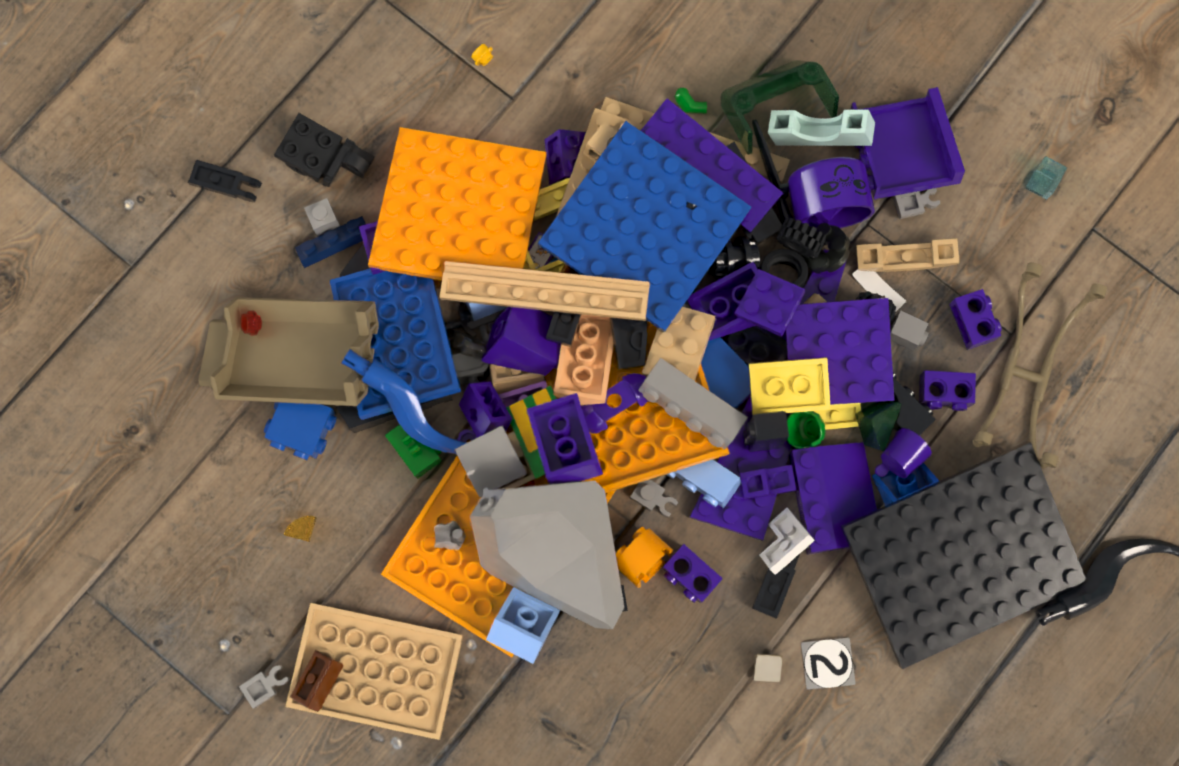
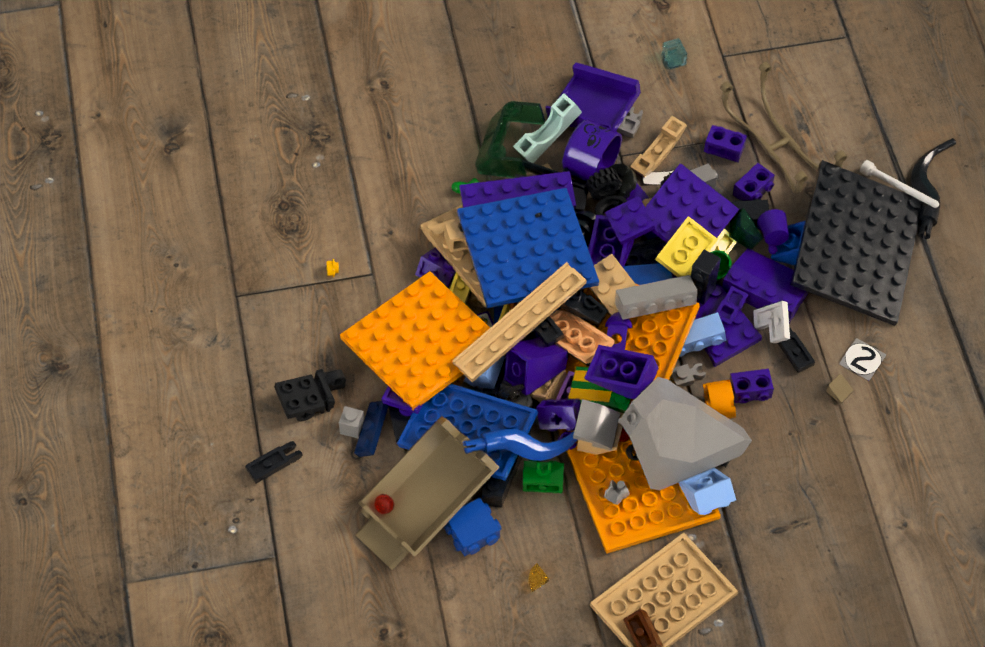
camera: 50 degrees left, 20 degrees down
(1077, 495) = (869, 169): none -> white piece

